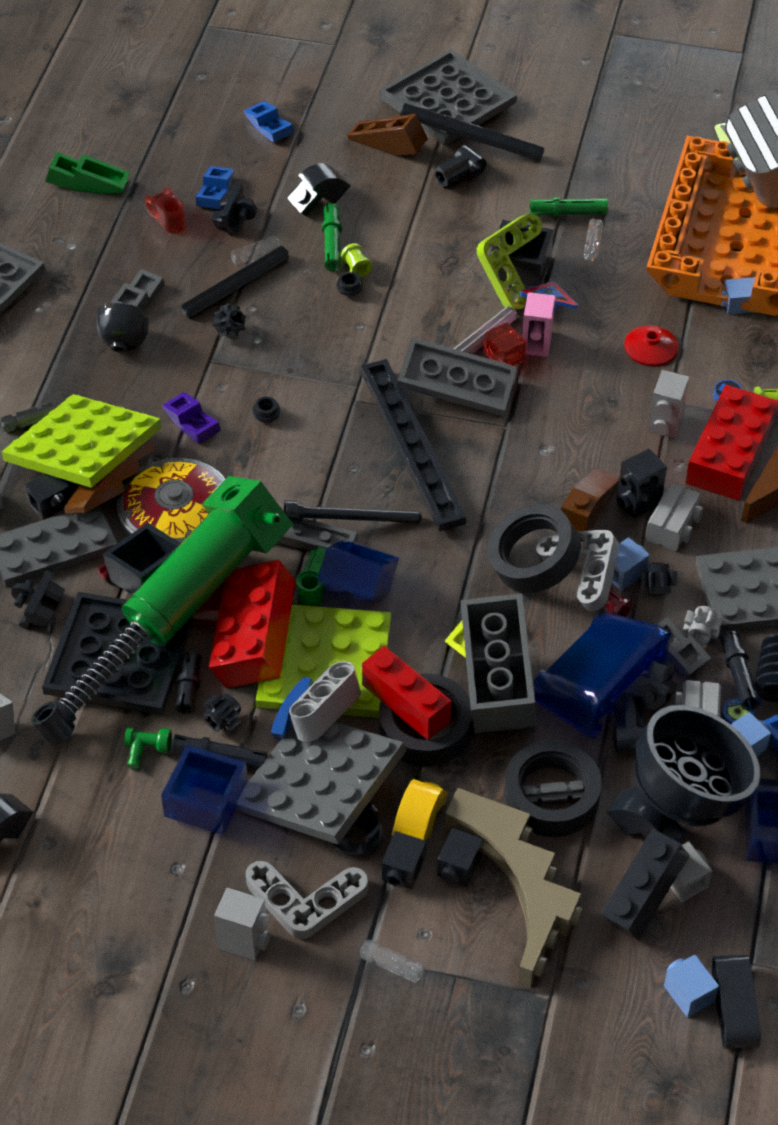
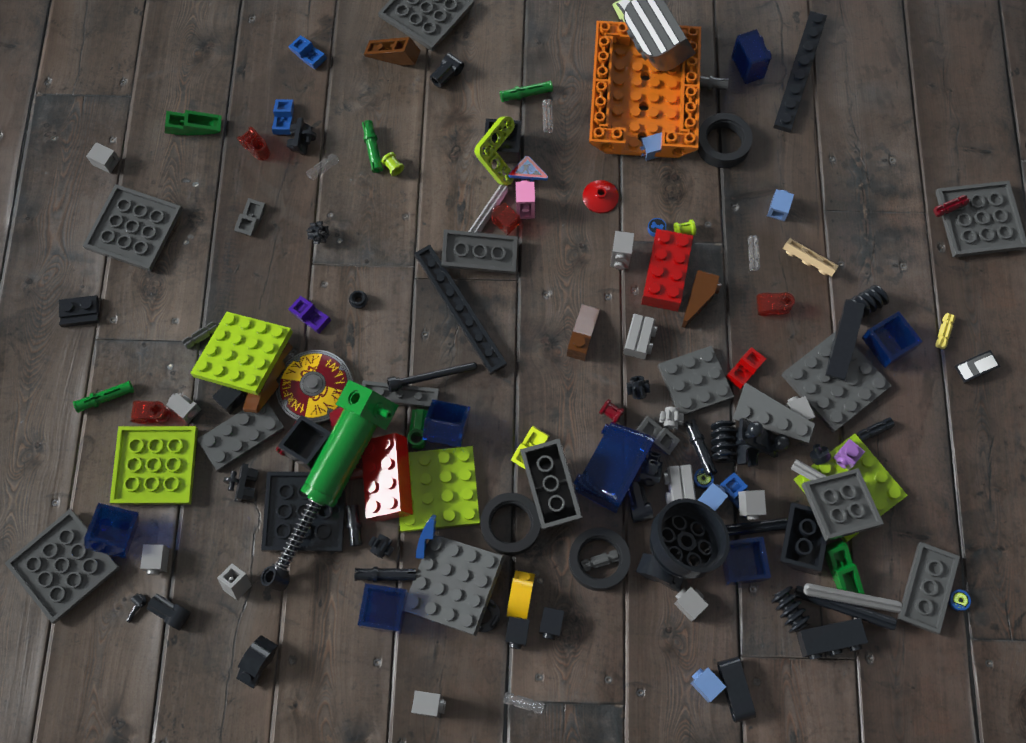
camera: 10 degrees left, 20 degrees up
(122, 326) = (247, 253): black cylinder -> none
(137, 740) = (331, 575): green piece -> none
(234, 282) = (314, 195): black axle -> none
(300, 907) = (457, 676): light grey beam -> none
(318, 183) = (354, 104): black brick -> none
(325, 701) = (445, 522): light grey beam -> none
(349, 284) = (392, 180): black plate -> none
(406, 692) = (496, 516): red brick -> none
(475, 132) = (450, 40): black axle -> none
(530, 870) = (611, 647): dark tan arch -> none
(546, 573) = (537, 370): black tyre -> none
(592, 557) = (595, 384): light grey beam -> none
(630, 563) = (615, 379): medium blue brick -> none
(641, 483) = (615, 318): black brick -> none
(645, 884) = (670, 625): black brick -> none

